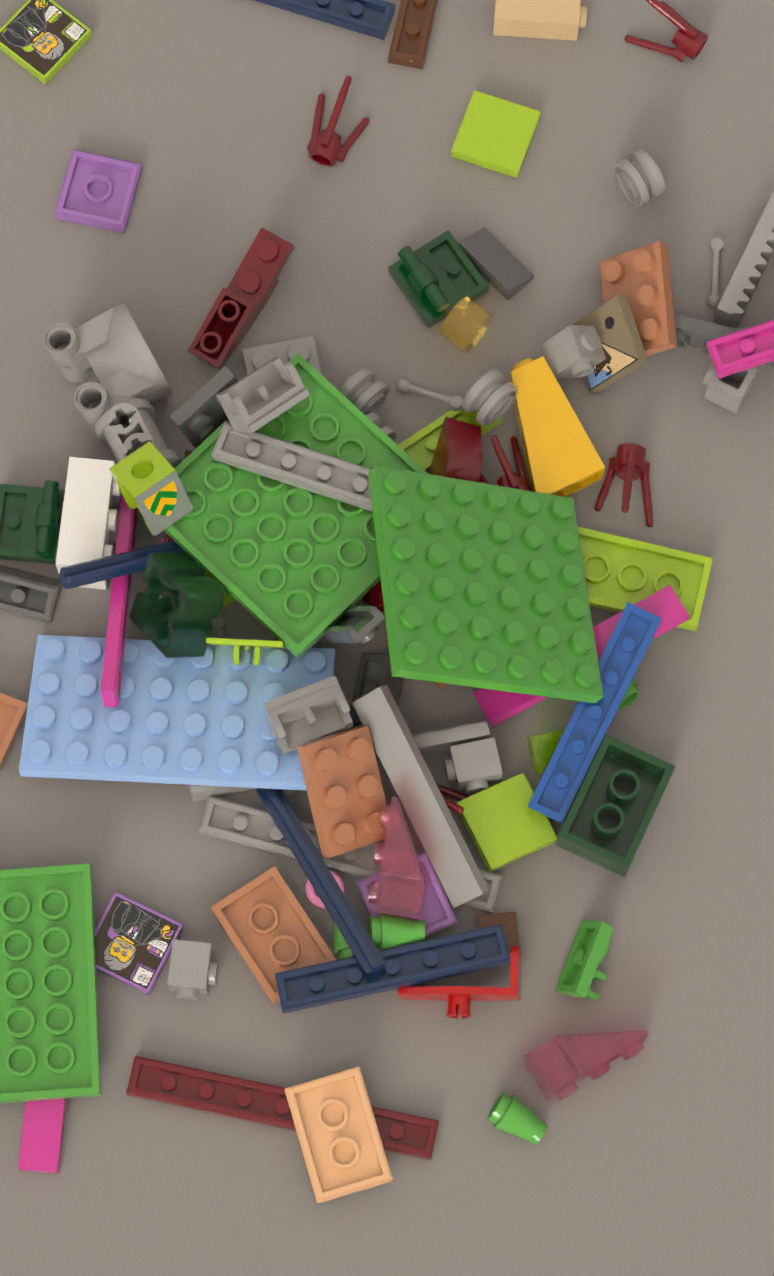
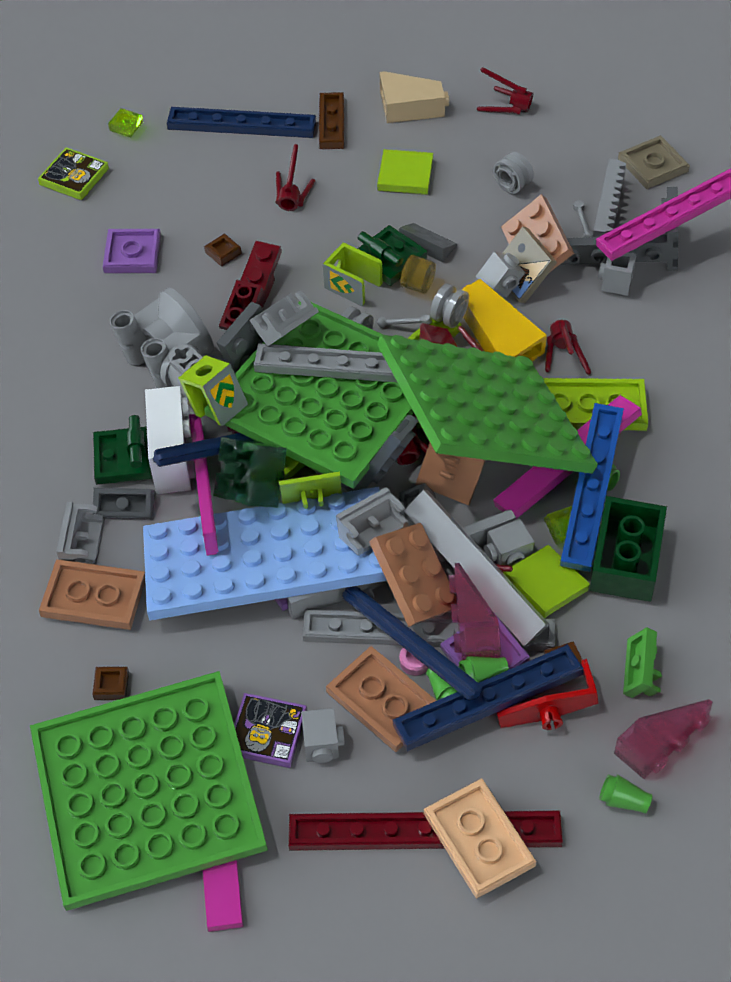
camera: 10 degrees left, 20 degrees down
(219, 216) = (222, 249): none -> reddish brown tile
(377, 275) = (350, 271): none -> lime piece

